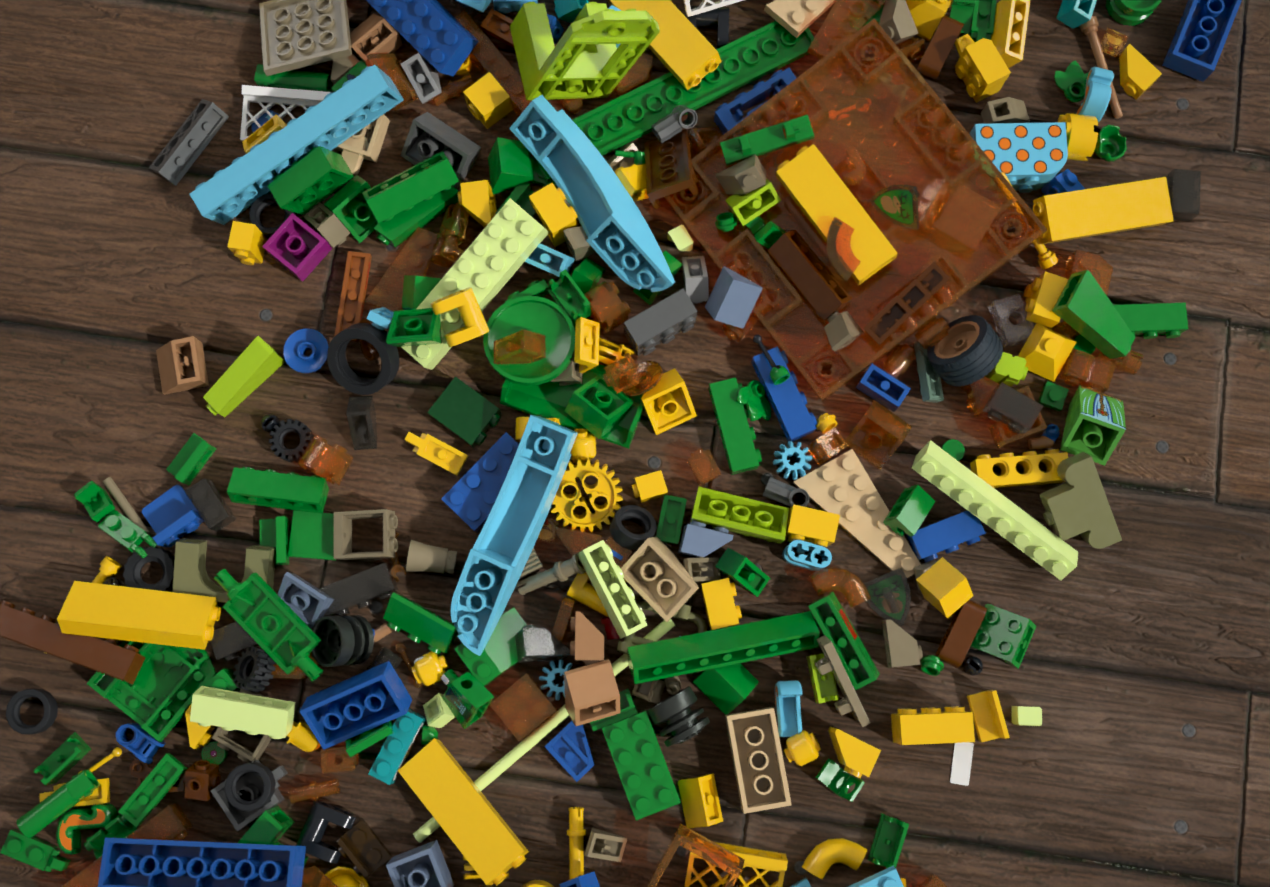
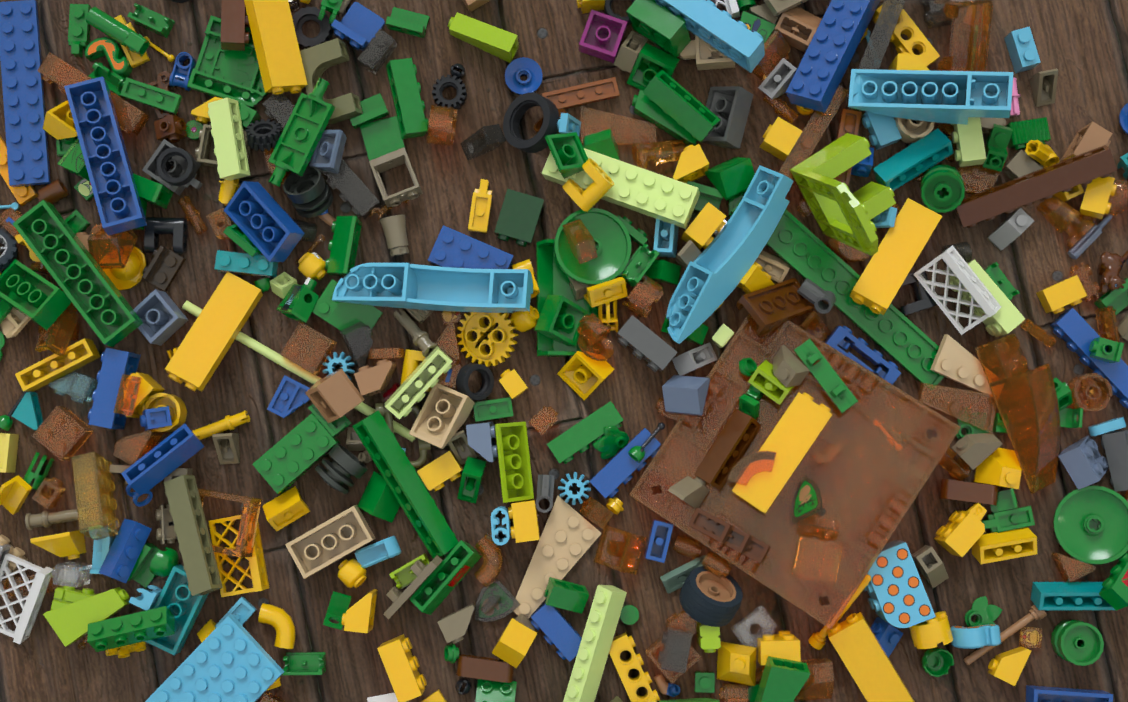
camera: 70 degrees right, 5 degrees up
(638, 156) = (780, 276): green hand -> none

